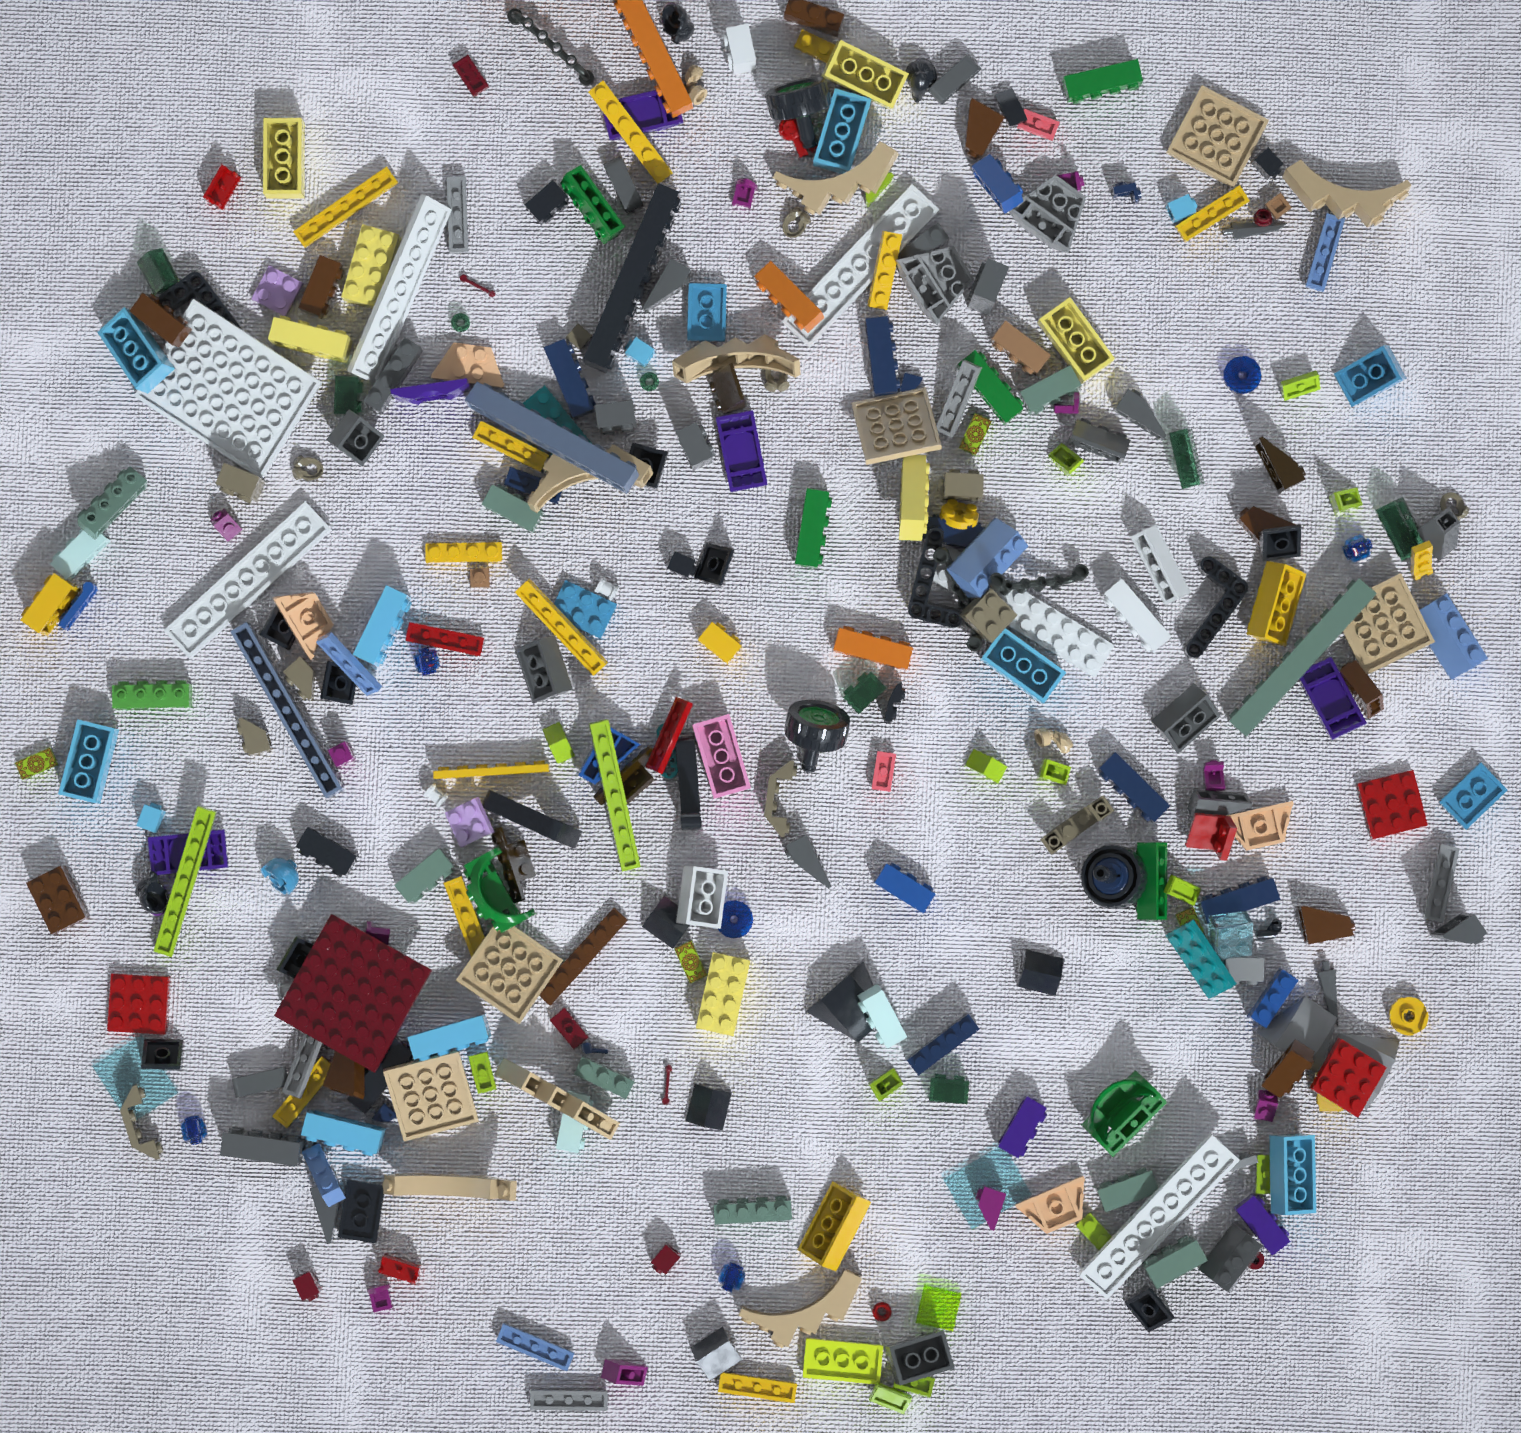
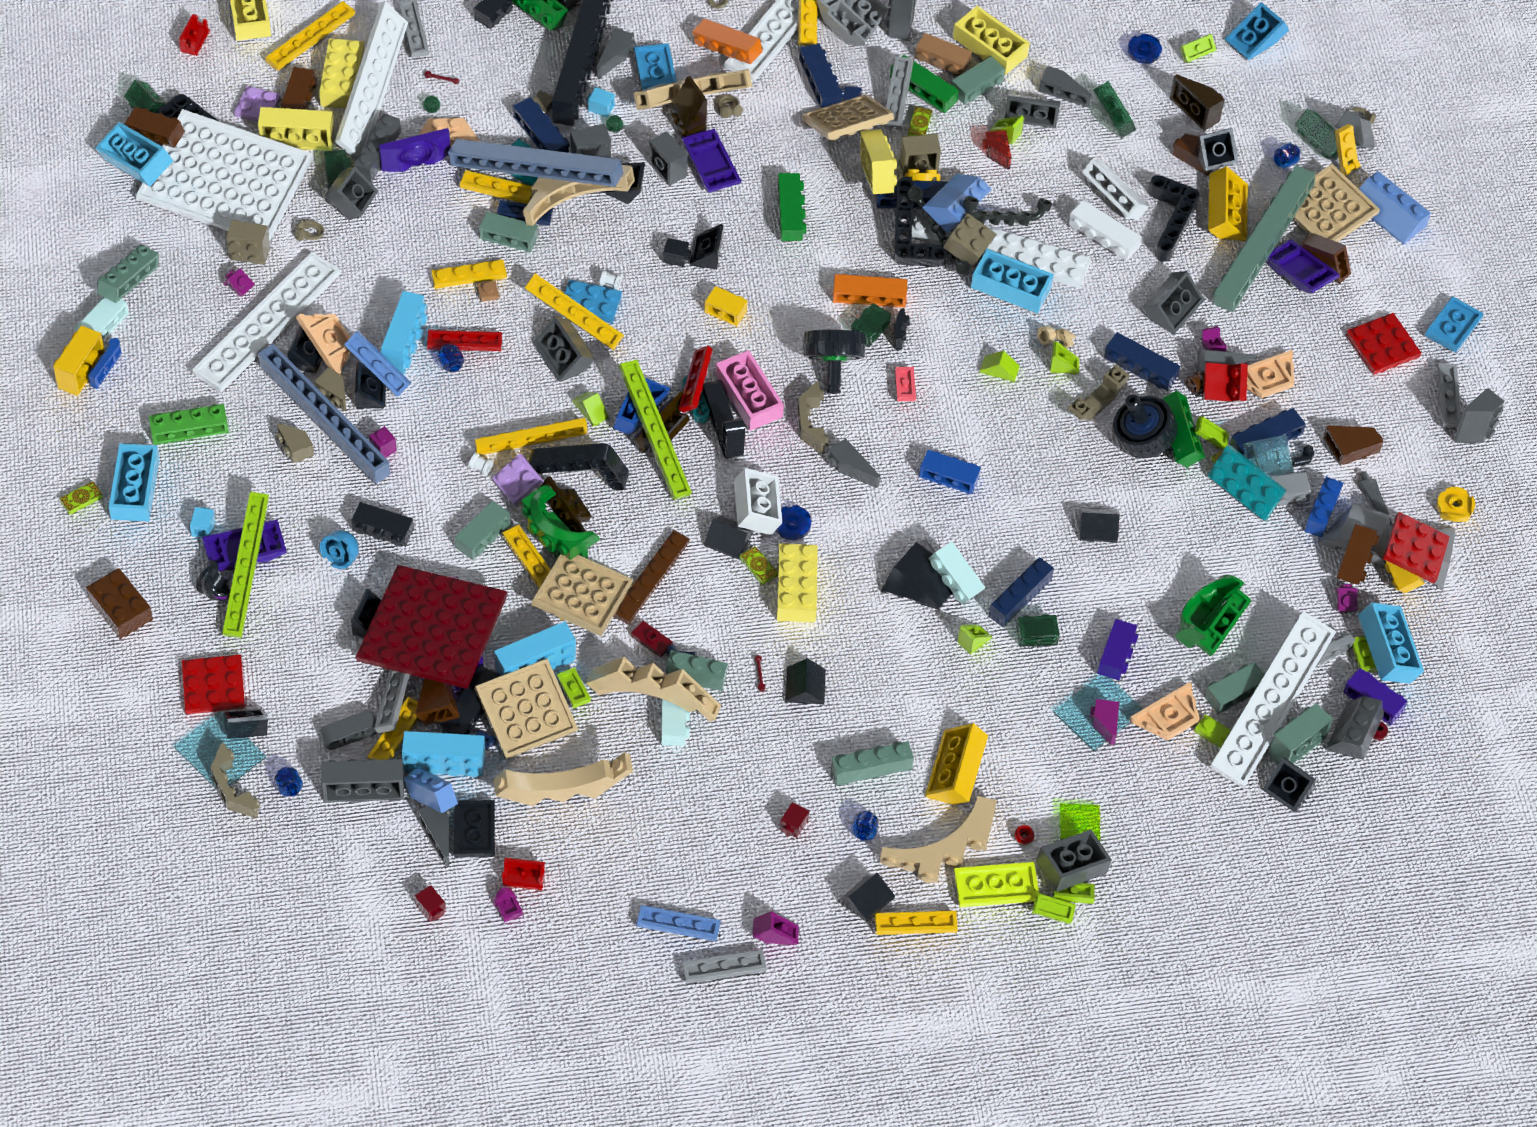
camera: 15 degrees left, 30 degrees down
(1049, 485) = (997, 148): none -> clear red slope
(1069, 409) = (997, 90): magenta tile -> none
(1182, 822) = (1195, 382): none -> reddish brown wheel
(1345, 500) = (1263, 124): lime slope -> none

